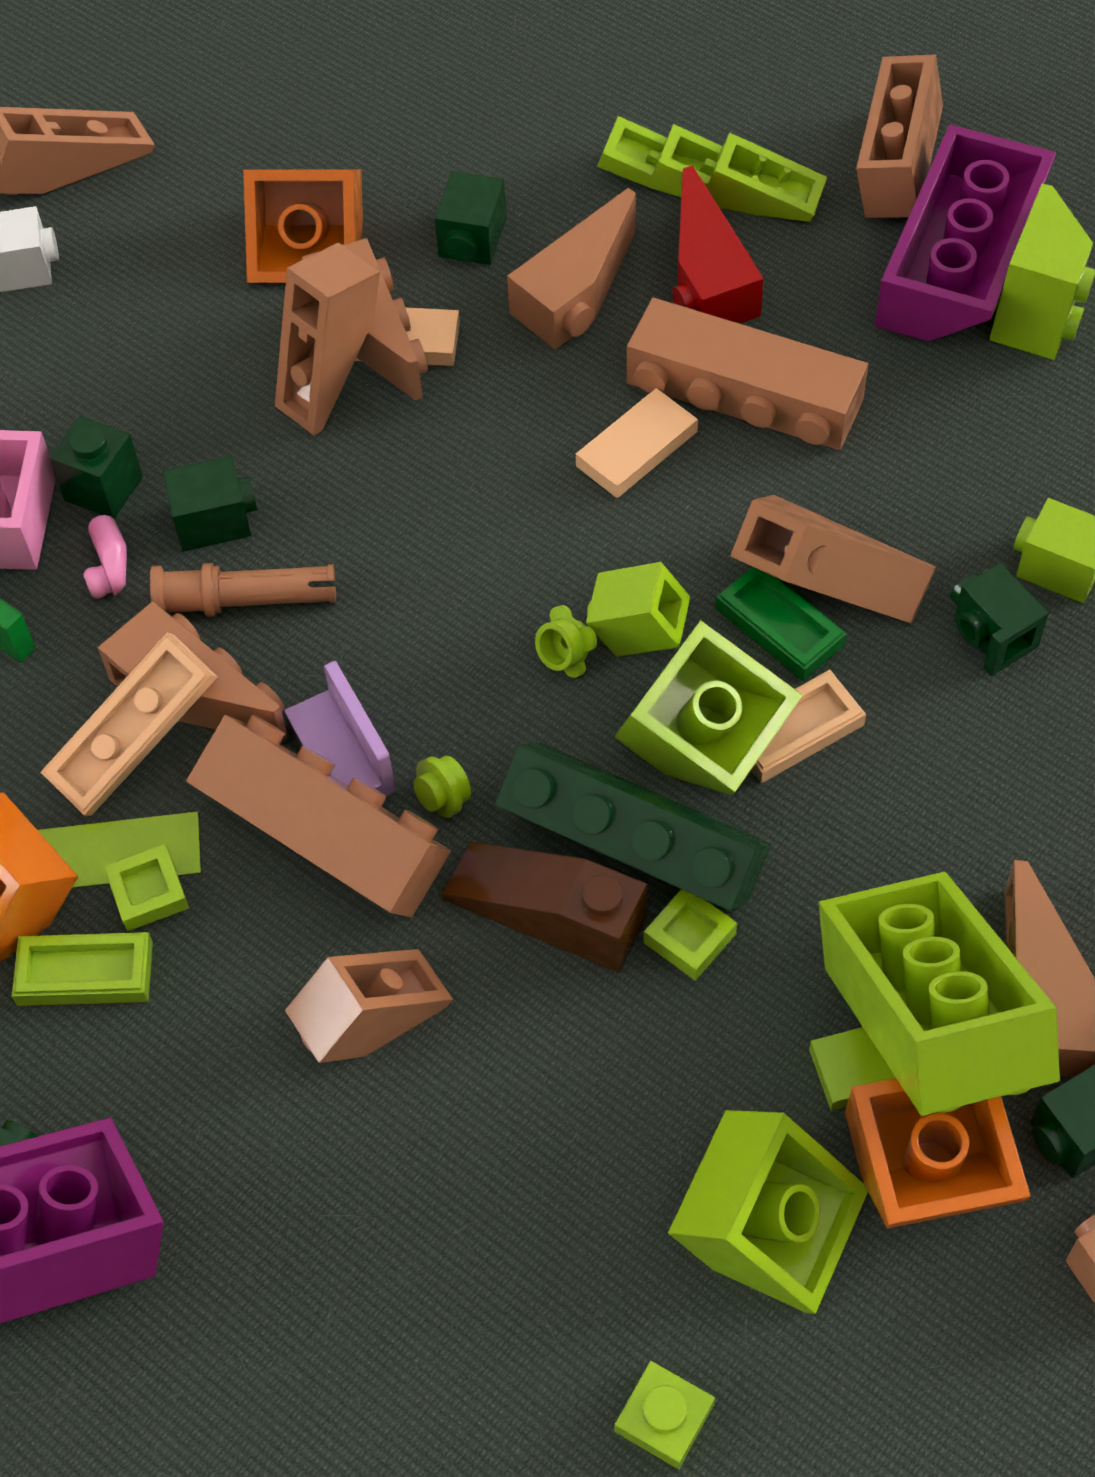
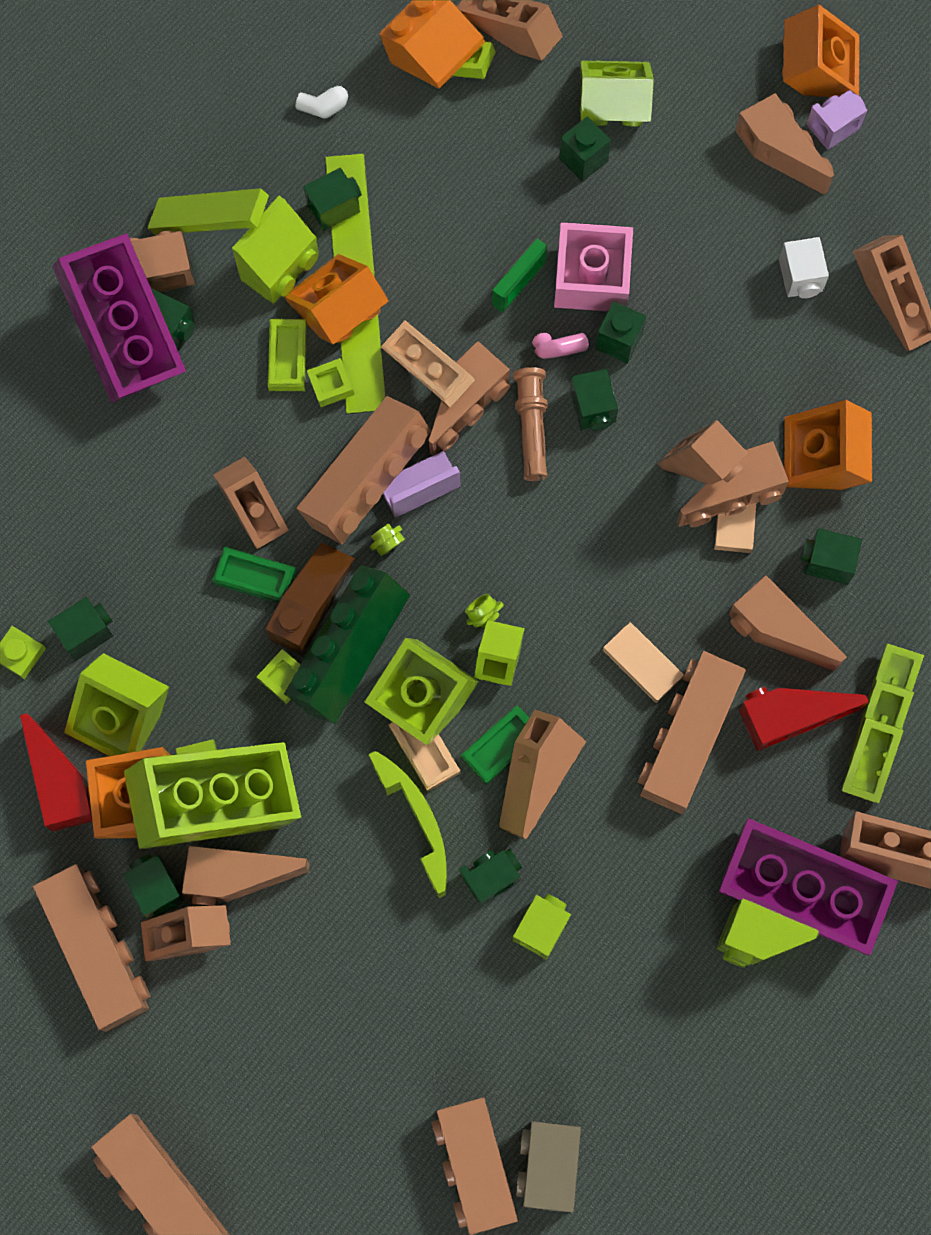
camera: 90 degrees right, 15 degrees up
(503, 1000) = (253, 575): none -> green tile
(616, 1284) = (82, 627): none -> dark green brick
(926, 1296) = (59, 784): none -> red slope
(984, 689) = (394, 779): none -> lime slope

